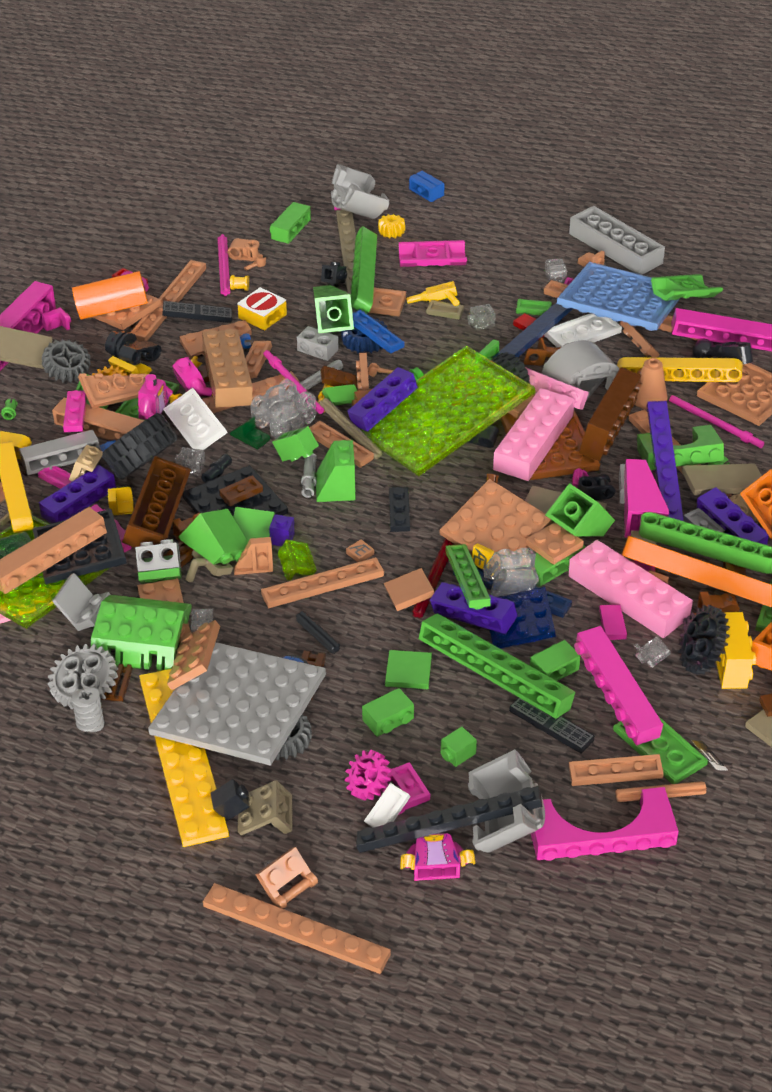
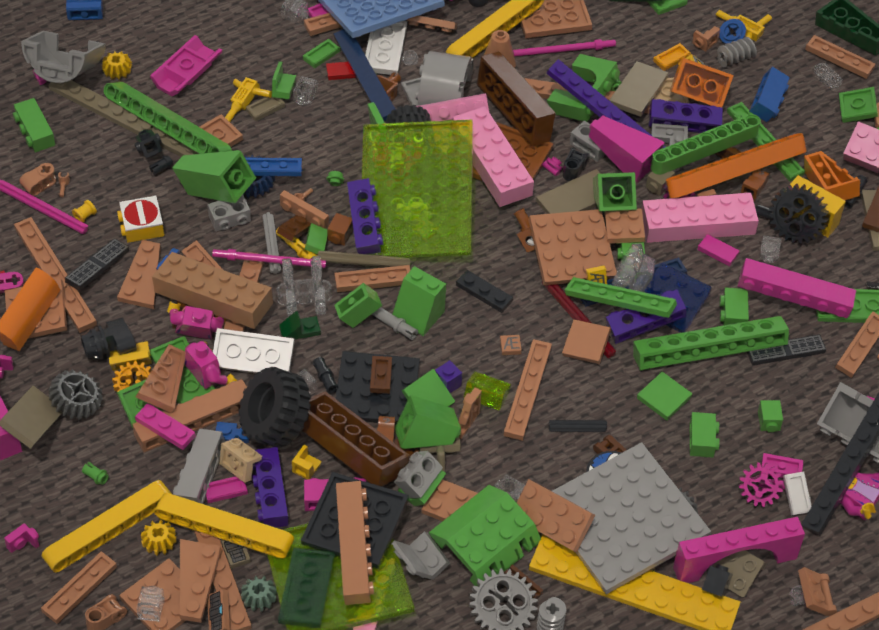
camera: 55 degrees left, 10 degrees up
(309, 808) = (698, 554): none -> dark pink arch
(472, 297) = (282, 83): none -> bright green panel

